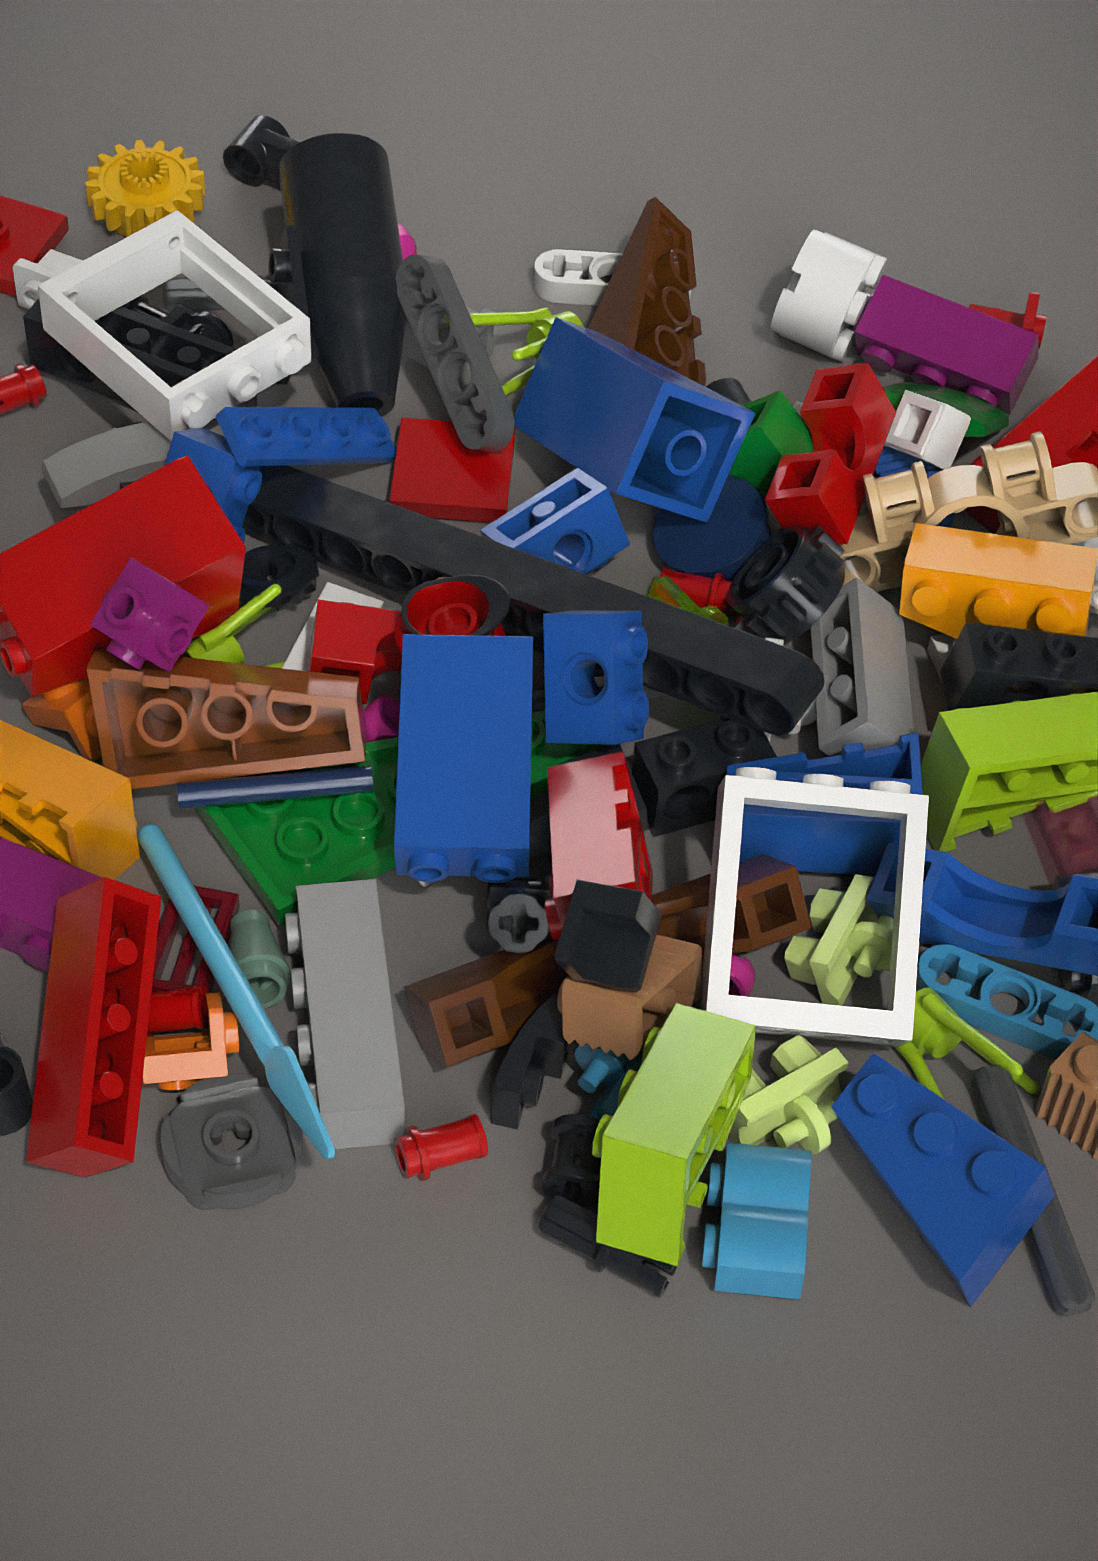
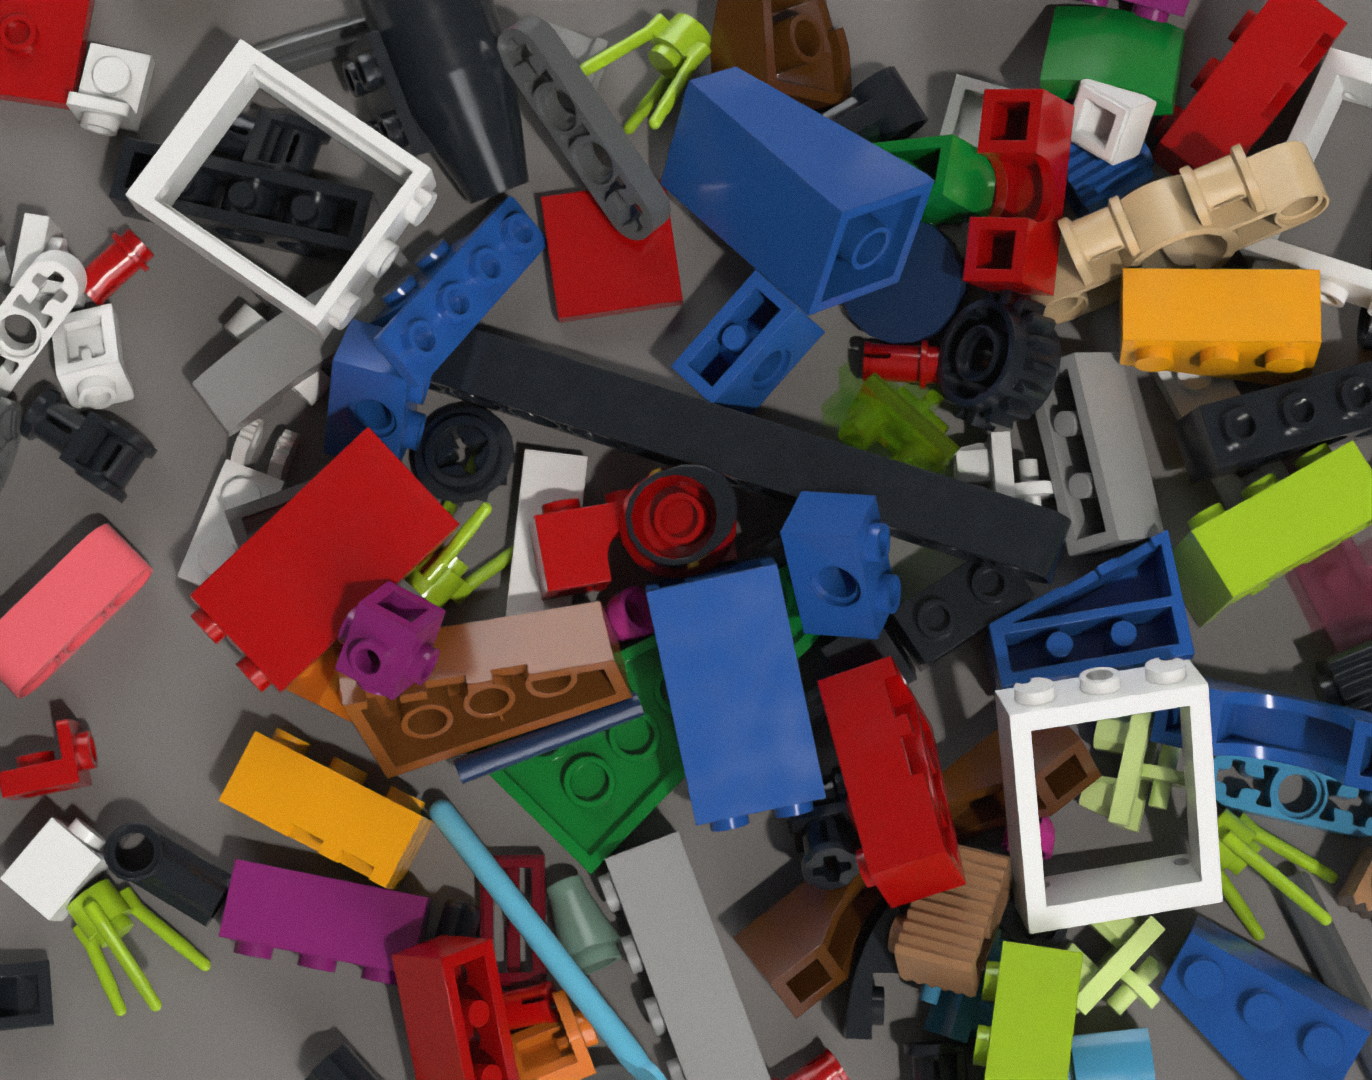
camera: 10 degrees left, 30 degrees up
(608, 936) = (934, 917): black panel -> none

